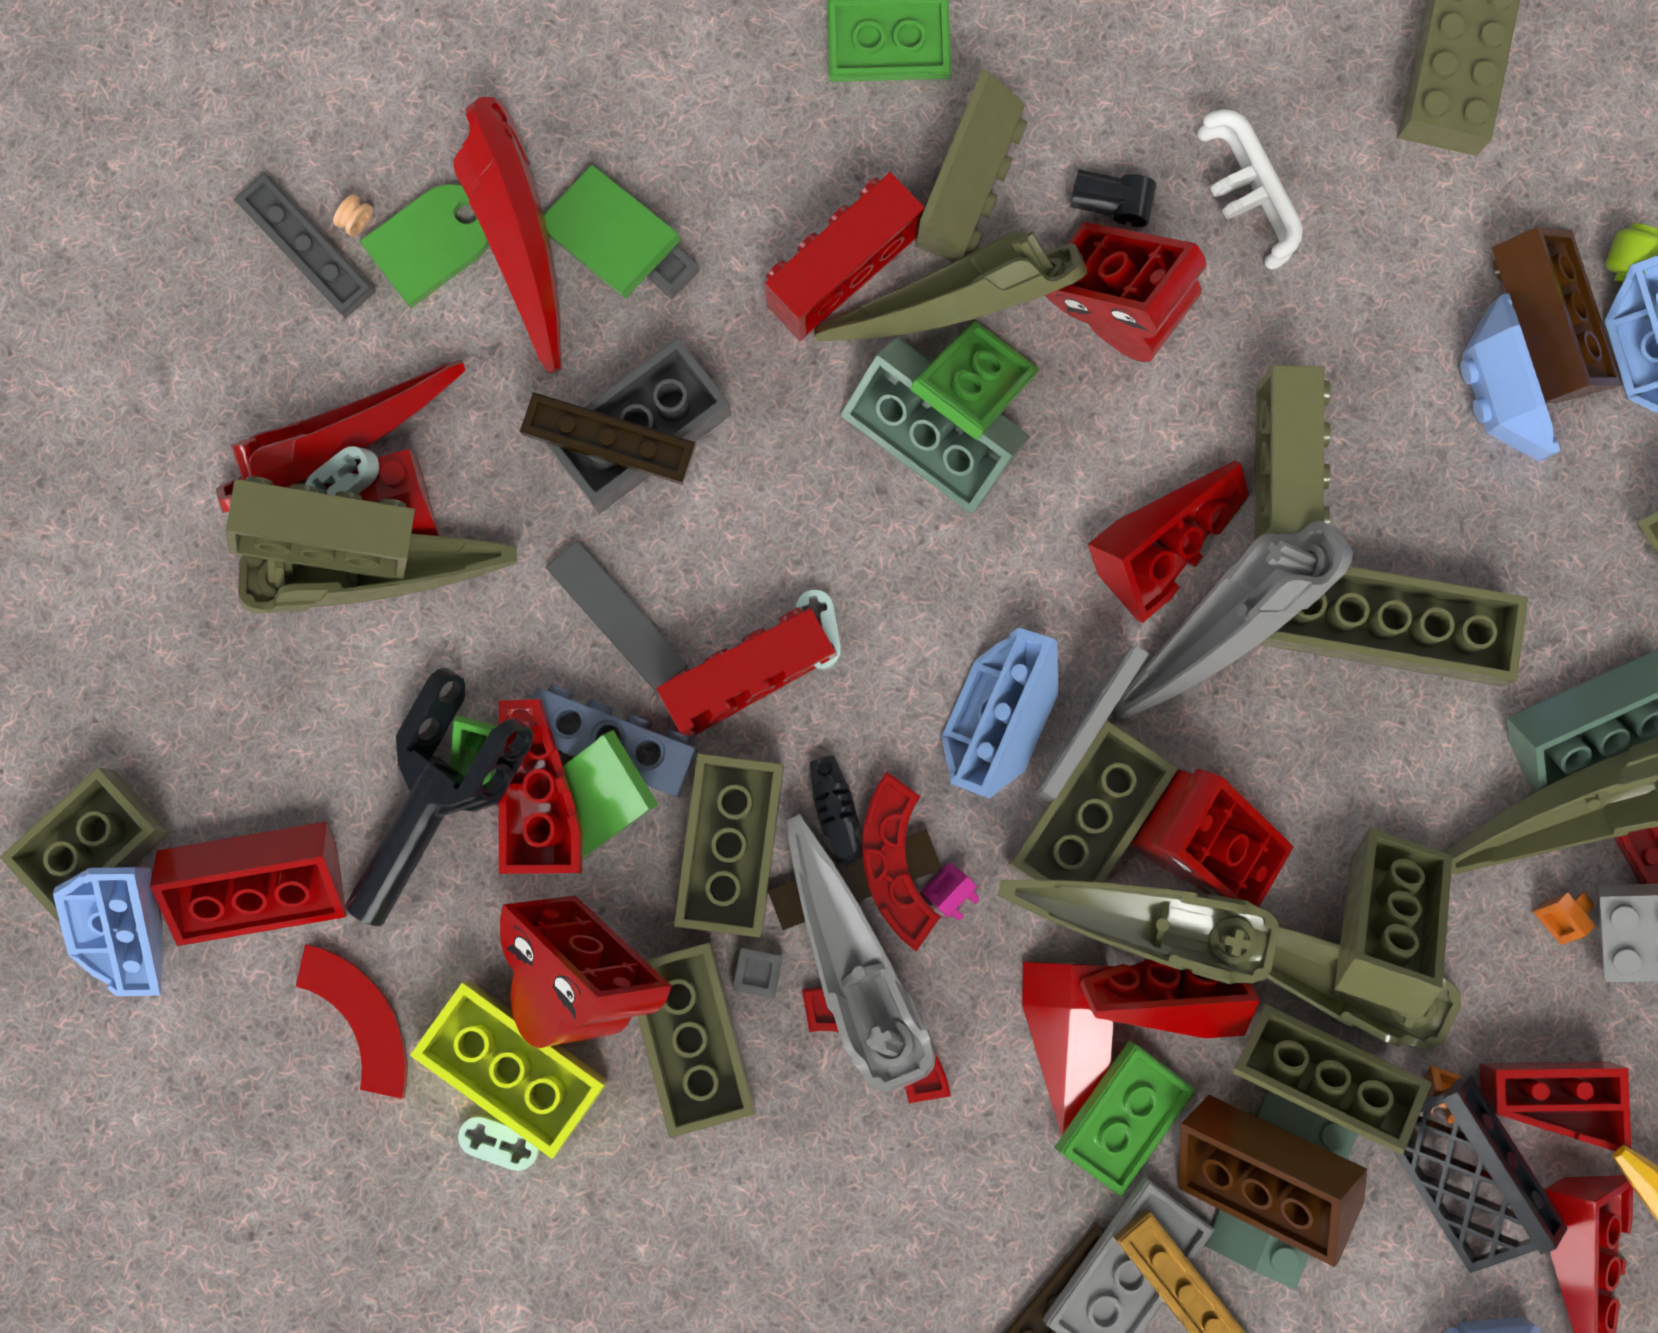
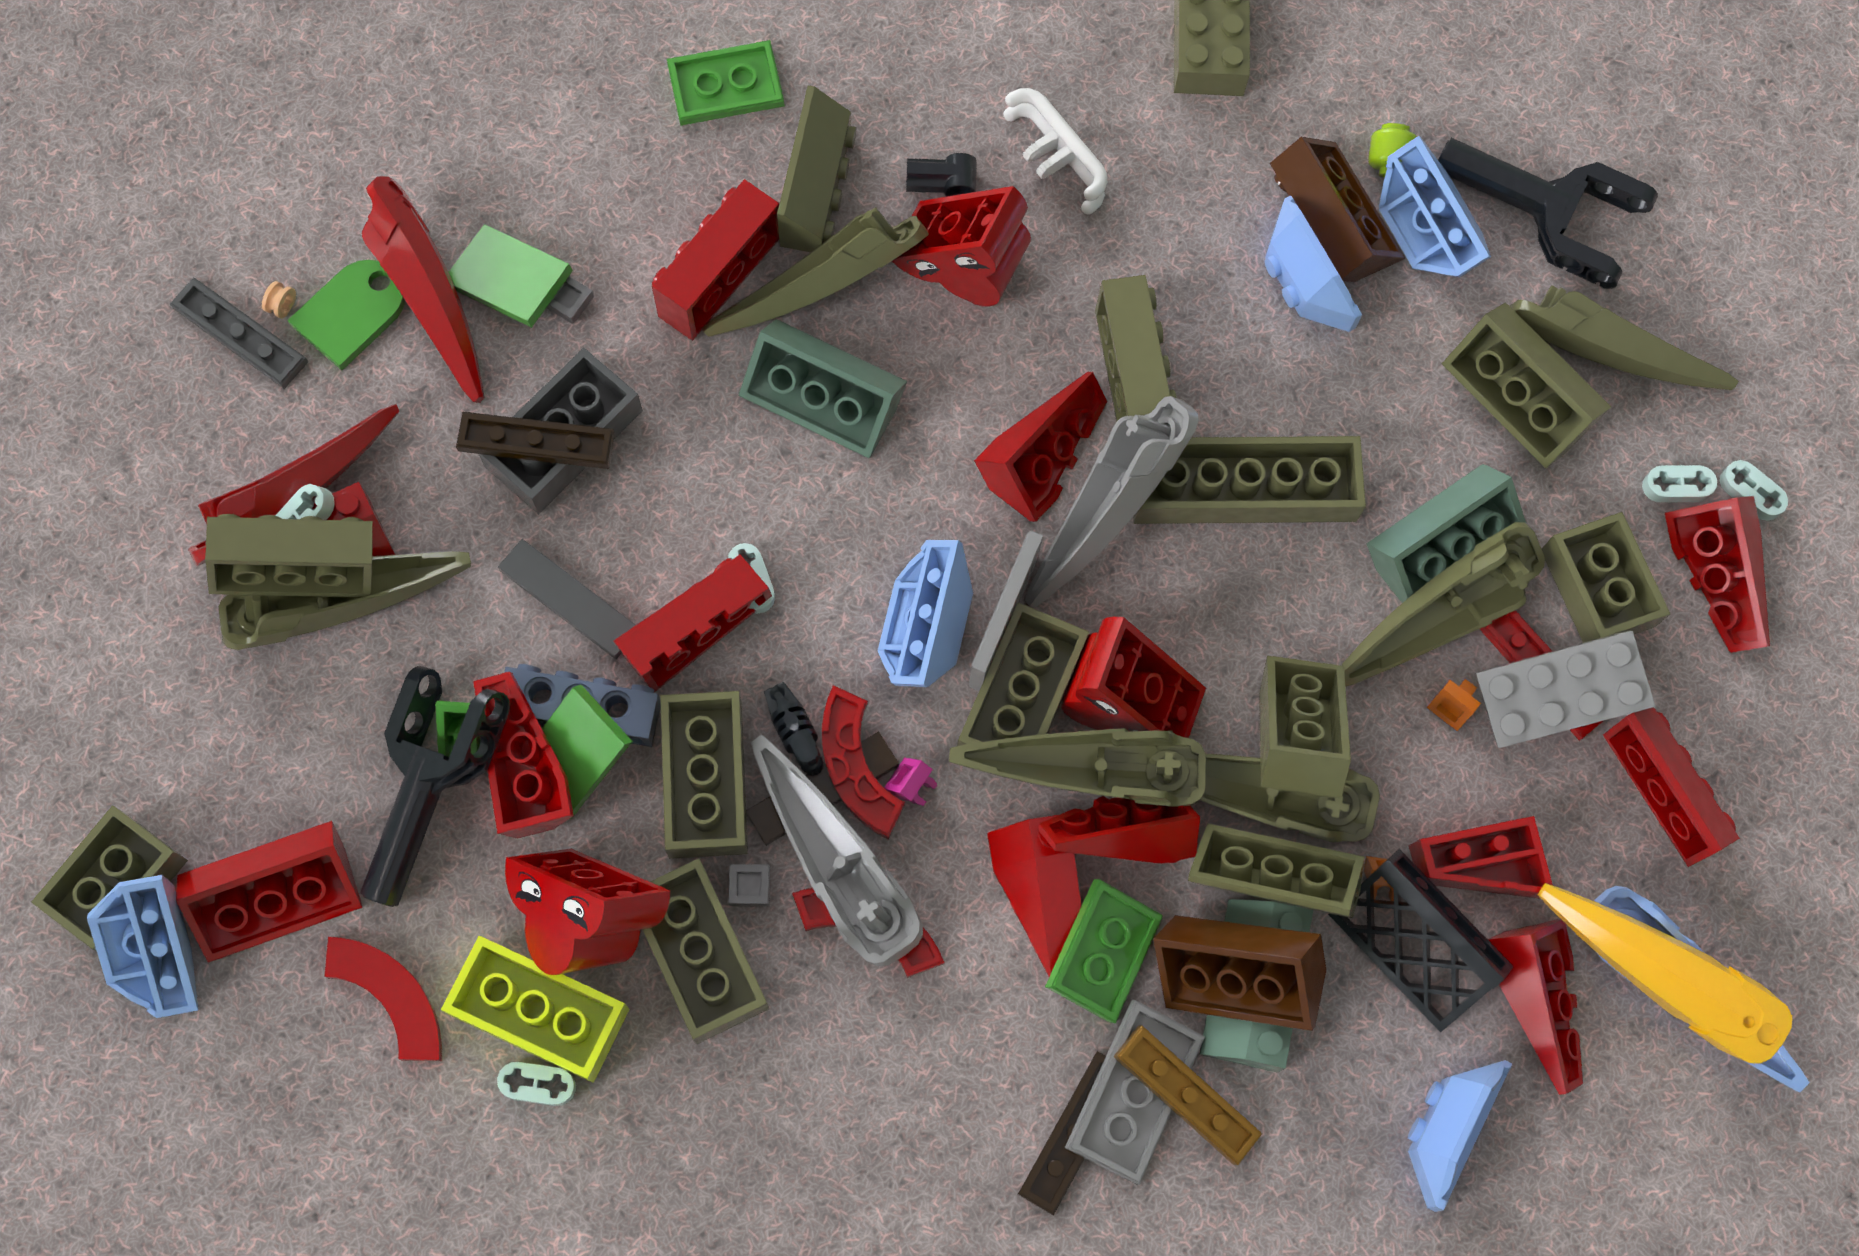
camera: 15 degrees left, 10 degrees down
(974, 379) = (849, 341): bright green tile -> none

